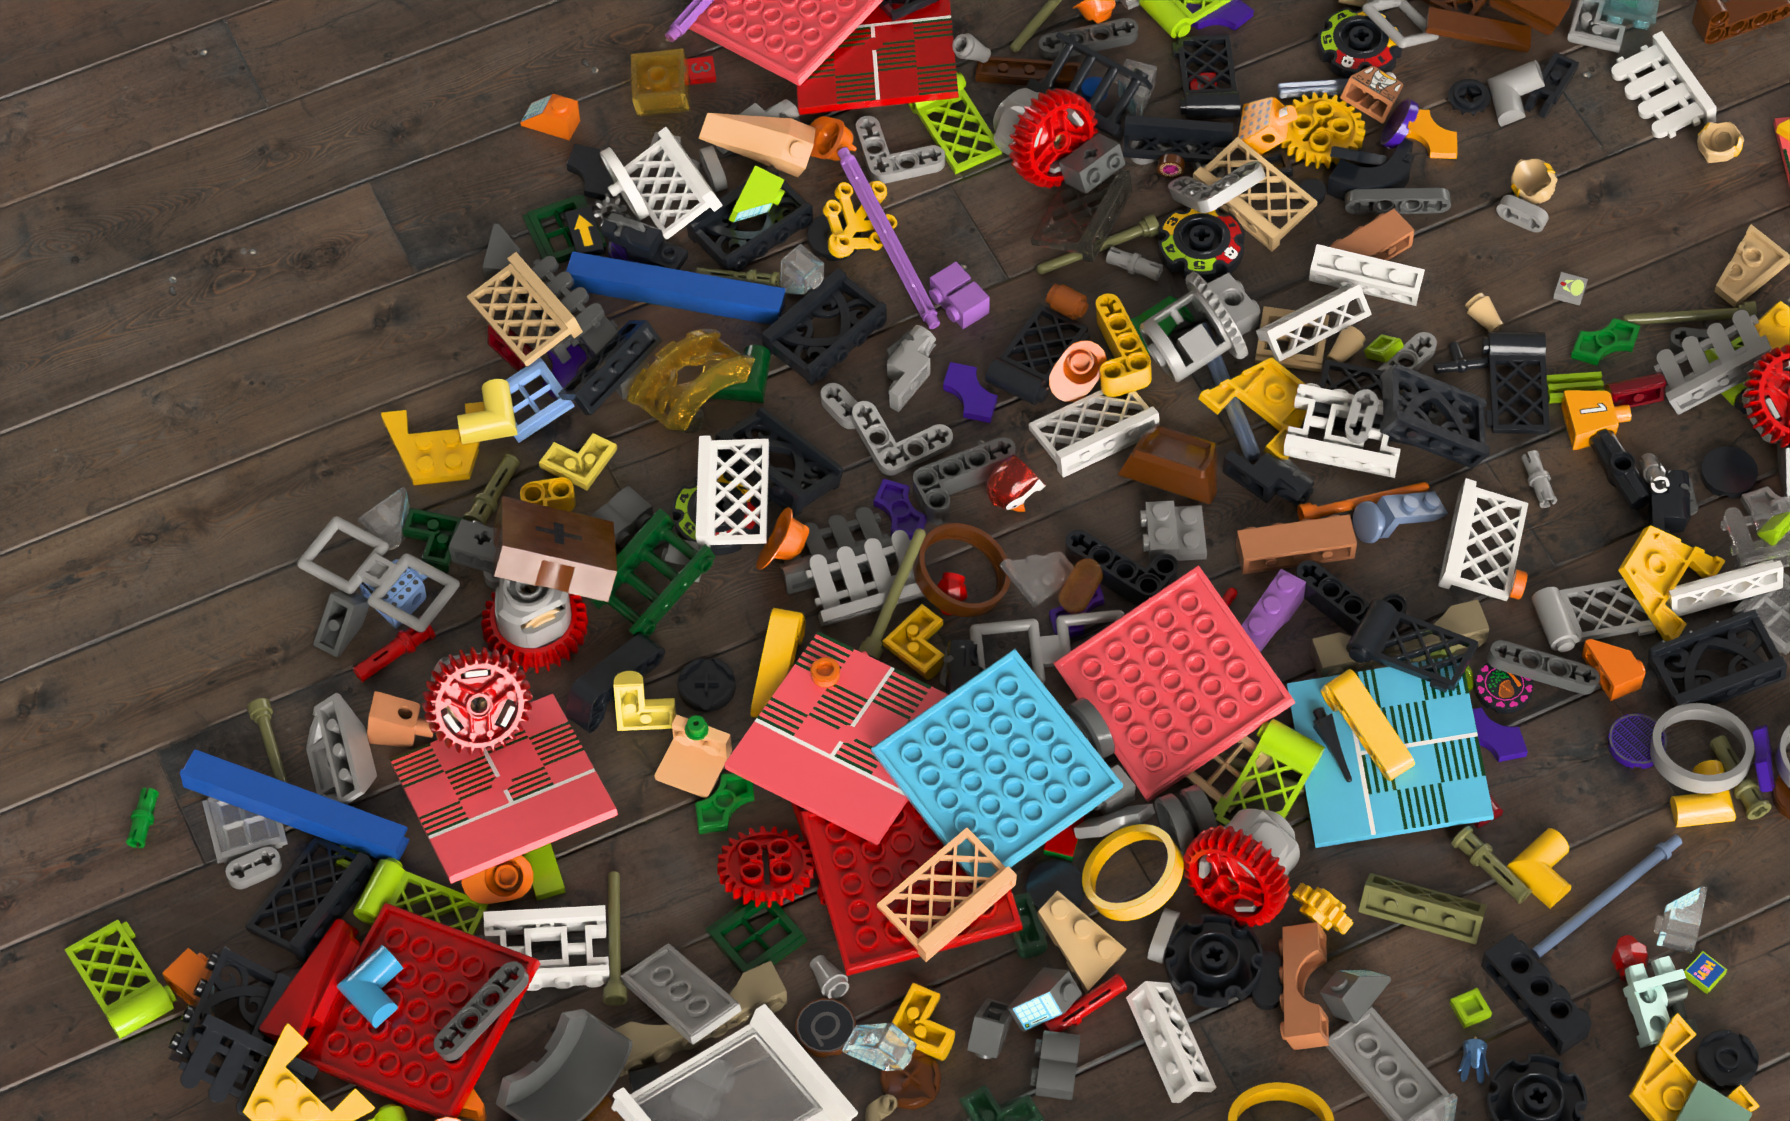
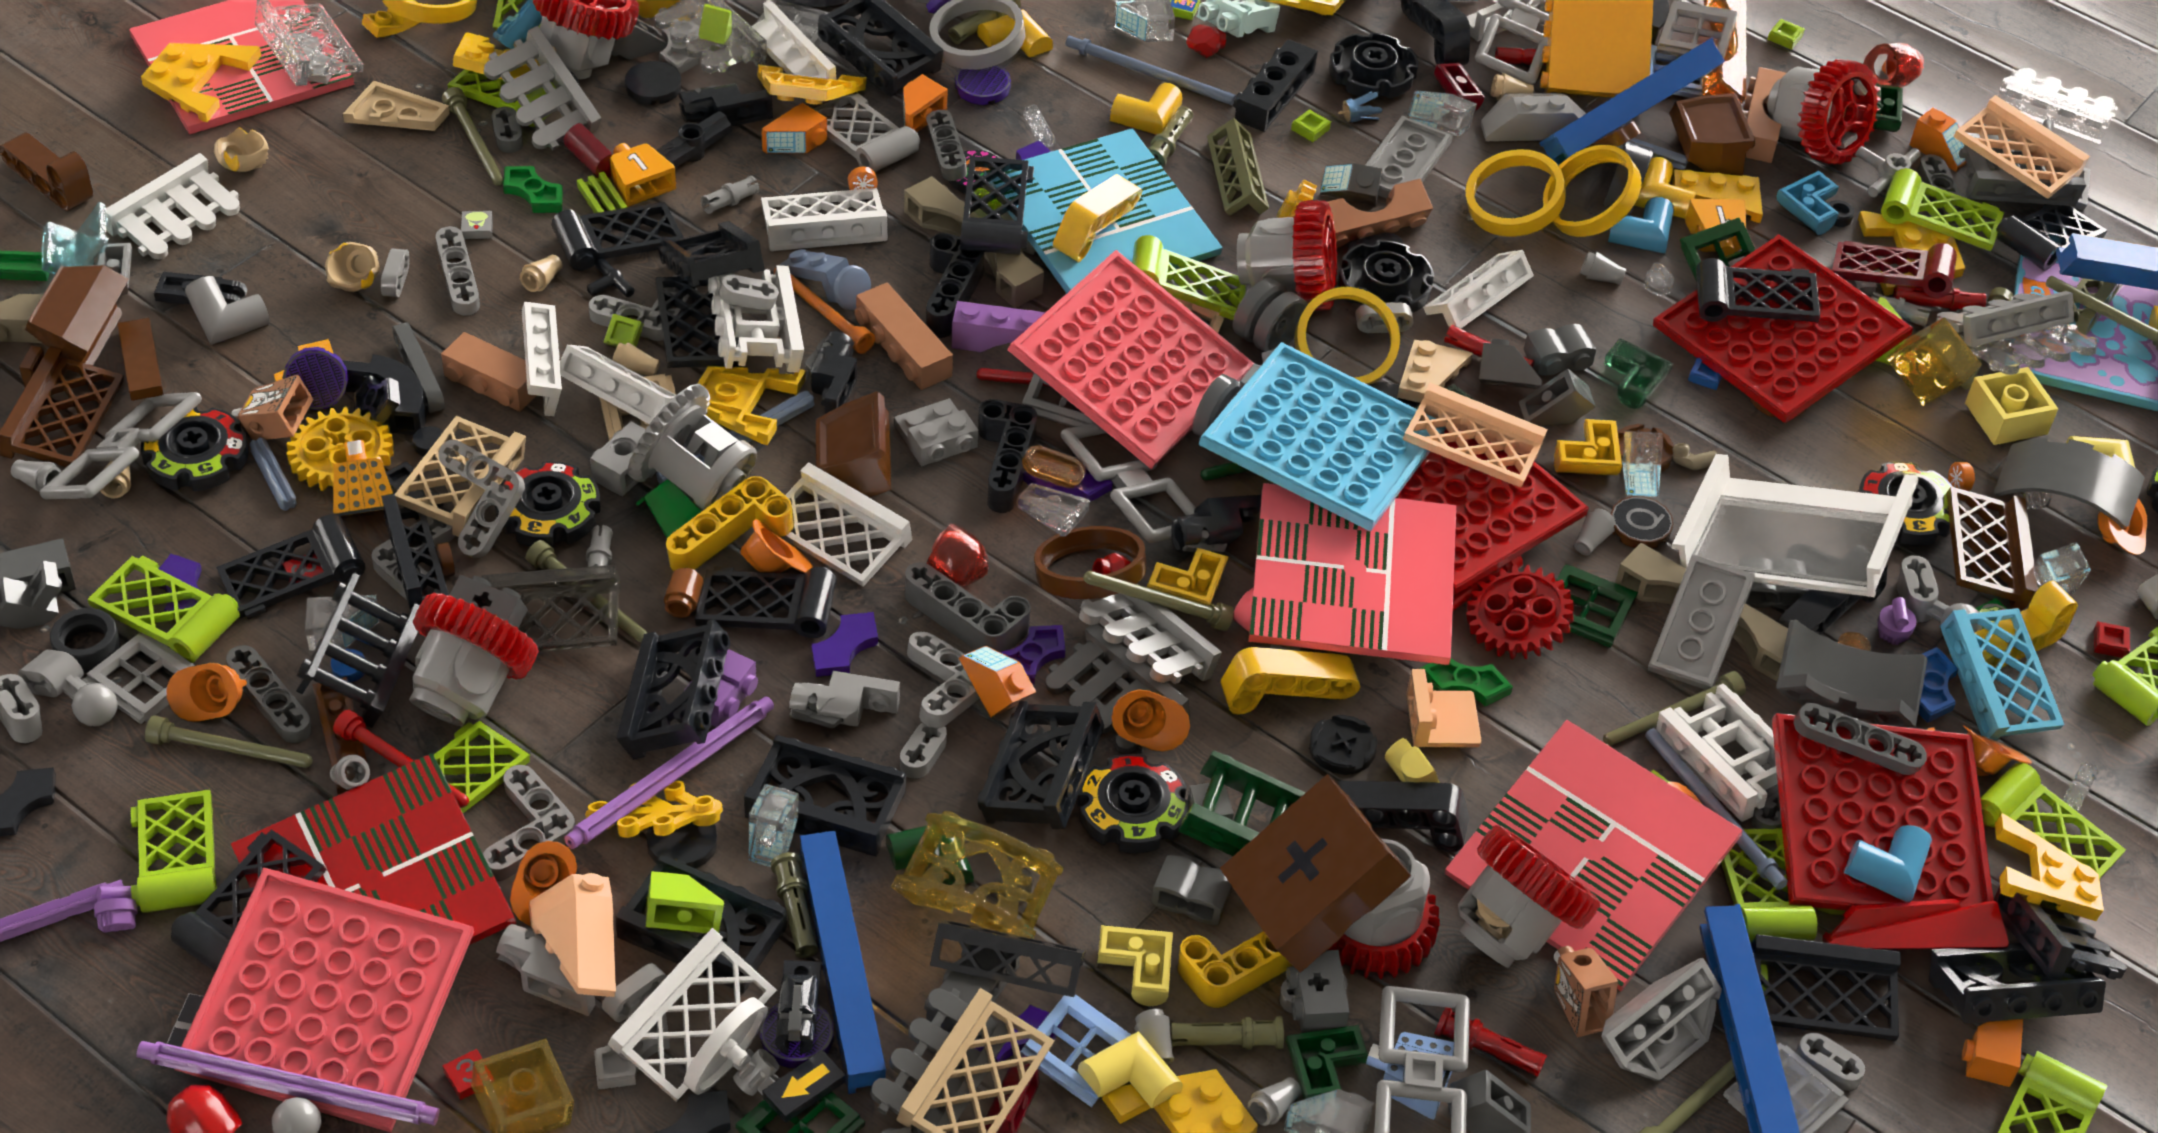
camera: 120 degrees left, 10 degrees down
(423, 493) = (1273, 1101): none -> light grey cone
(426, 906) = (1766, 866): none -> sand blue bar
(518, 446) = (1156, 1030): none -> light grey cone
(696, 728) = (1427, 694): green piece -> none
(708, 497) = (1136, 785): white fence -> none
(825, 672) = (1298, 605): orange tile -> none
(870, 459) = (997, 679): none -> orange slope
(990, 264) = (642, 724): none -> black fence
(1020, 68) = (351, 727): none -> red piece
(1327, 732) = (1120, 243): black piece -> none
(1478, 92) = (246, 342): black gear -> none
(1514, 255) = (457, 270): none -> light grey beam
(1552, 763) = (1039, 125): none -> clear axle
(1607, 554) = (795, 131): none -> orange slope
(1654, 473) = (690, 113): light grey pin -> none

